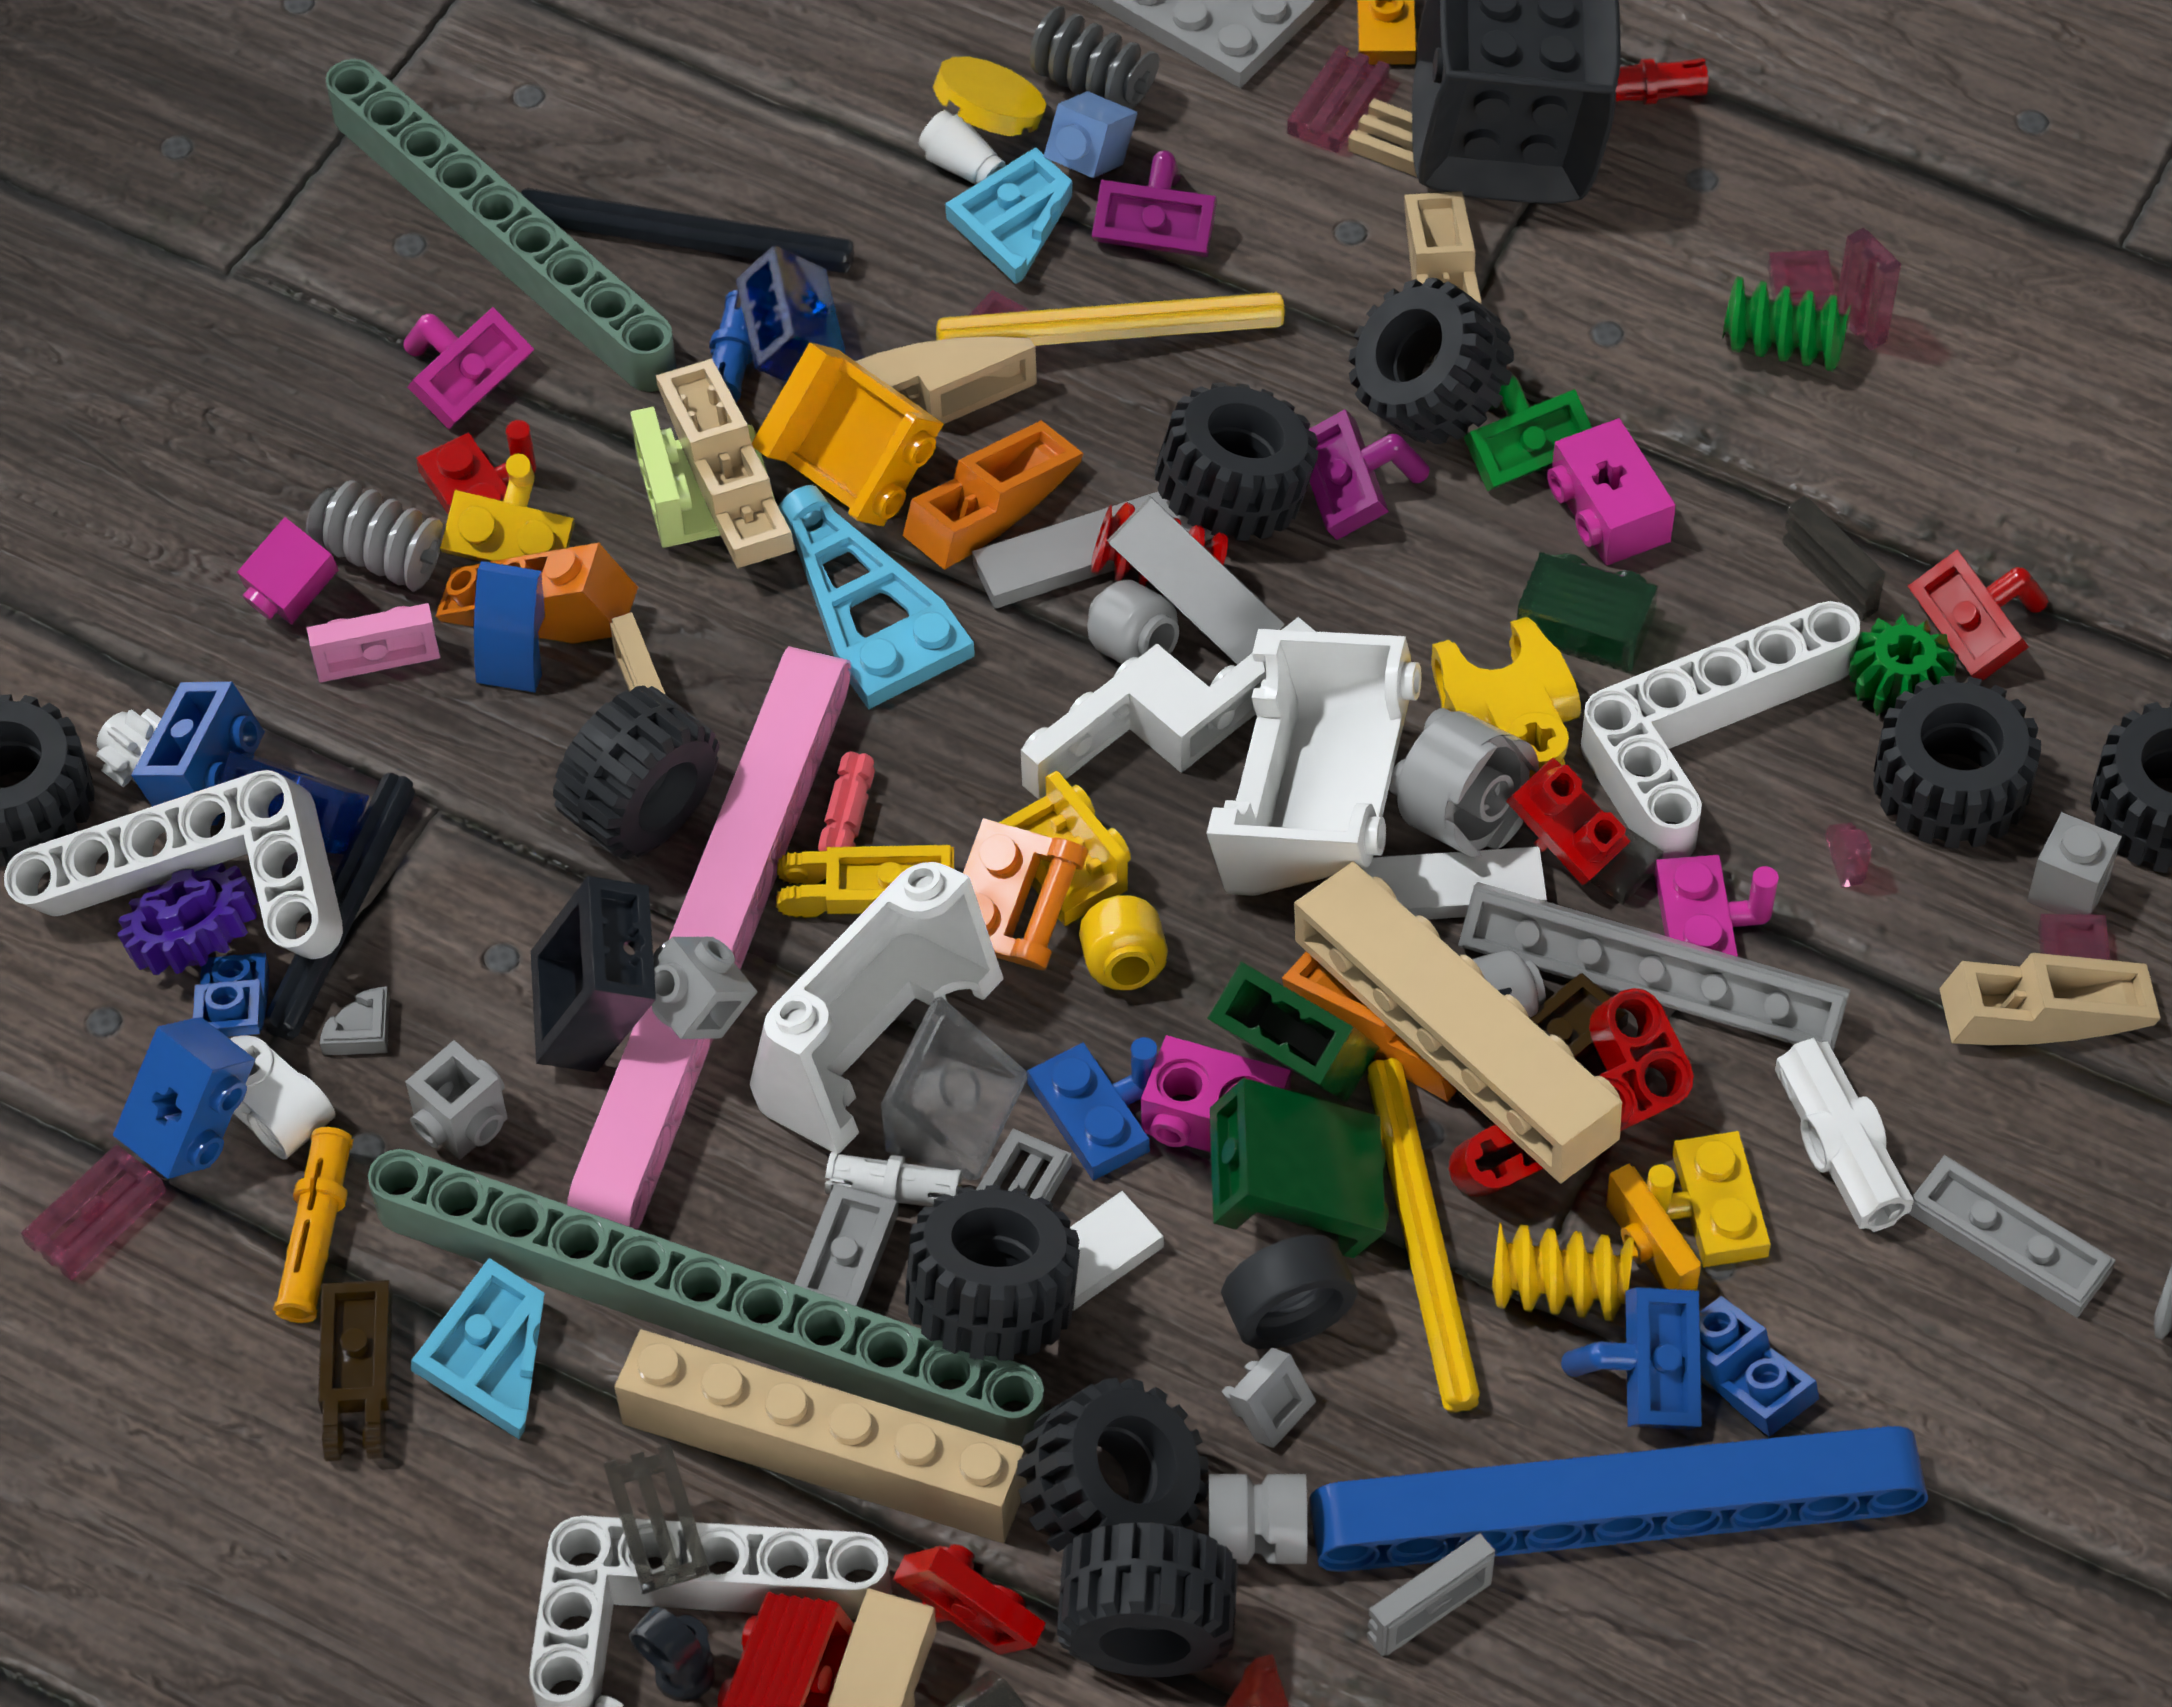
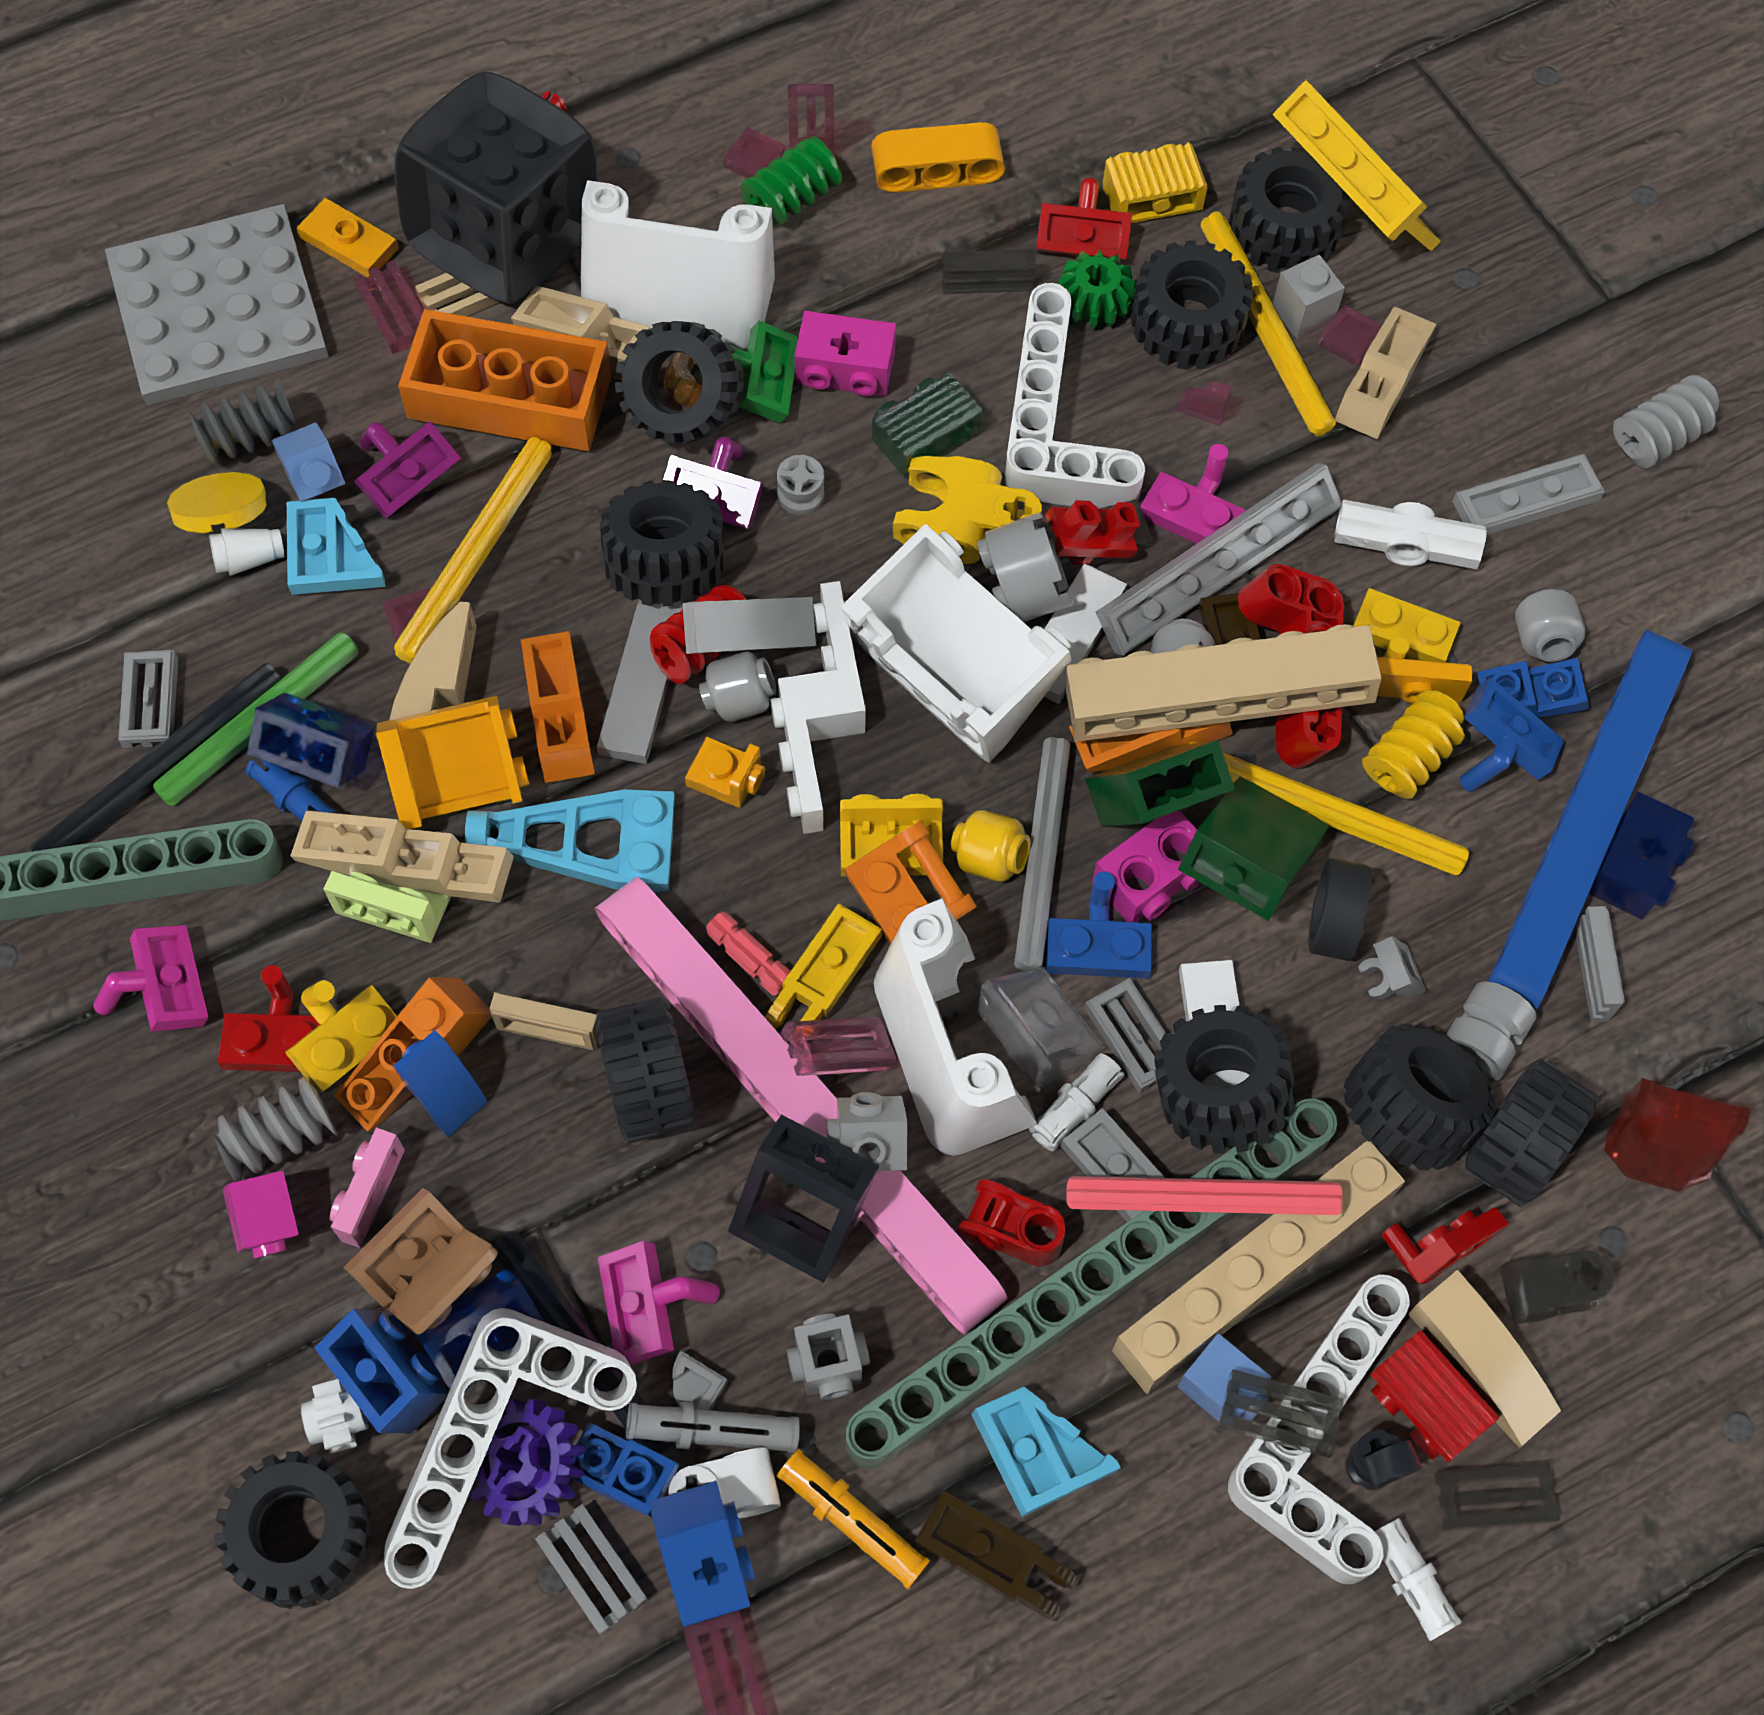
camera: 60 degrees left, 10 degrees up
(104, 1034) = (563, 1529): none -> light grey tile
(289, 988) = (646, 1420): none -> light grey pin
(328, 715) = (421, 1263): none -> medium nougat bracket
(414, 916) = (639, 1299): none -> dark pink plate
(695, 1459) = (1208, 1377): none -> medium blue brick
(712, 1190) = (1010, 1222): none -> red piece
(753, 187) = (147, 733): none -> light grey tile
(775, 931) = (841, 1053): none -> clear pink tile
(845, 279) = (236, 733): none -> bright green axle
(846, 1322) = (1204, 1195): none -> coral axle
(1033, 675) = (726, 772): none -> light orange bracket
(1154, 999) = (1042, 854): none -> light grey axle
(1314, 224) = (506, 379): none -> orange brick
(1429, 535) = (792, 476): none -> light grey wheel
(1559, 300) = (675, 271): none -> white windscreen
(1634, 1552) = (1649, 831): none -> clear blue brick
(1838, 1332) = (1549, 625): none -> light grey head
(1944, 433) = (937, 157): none -> light orange beam
(2007, 861) = (1273, 334): none -> yellow axle
(2097, 645) = (1155, 182): none -> yellow brick

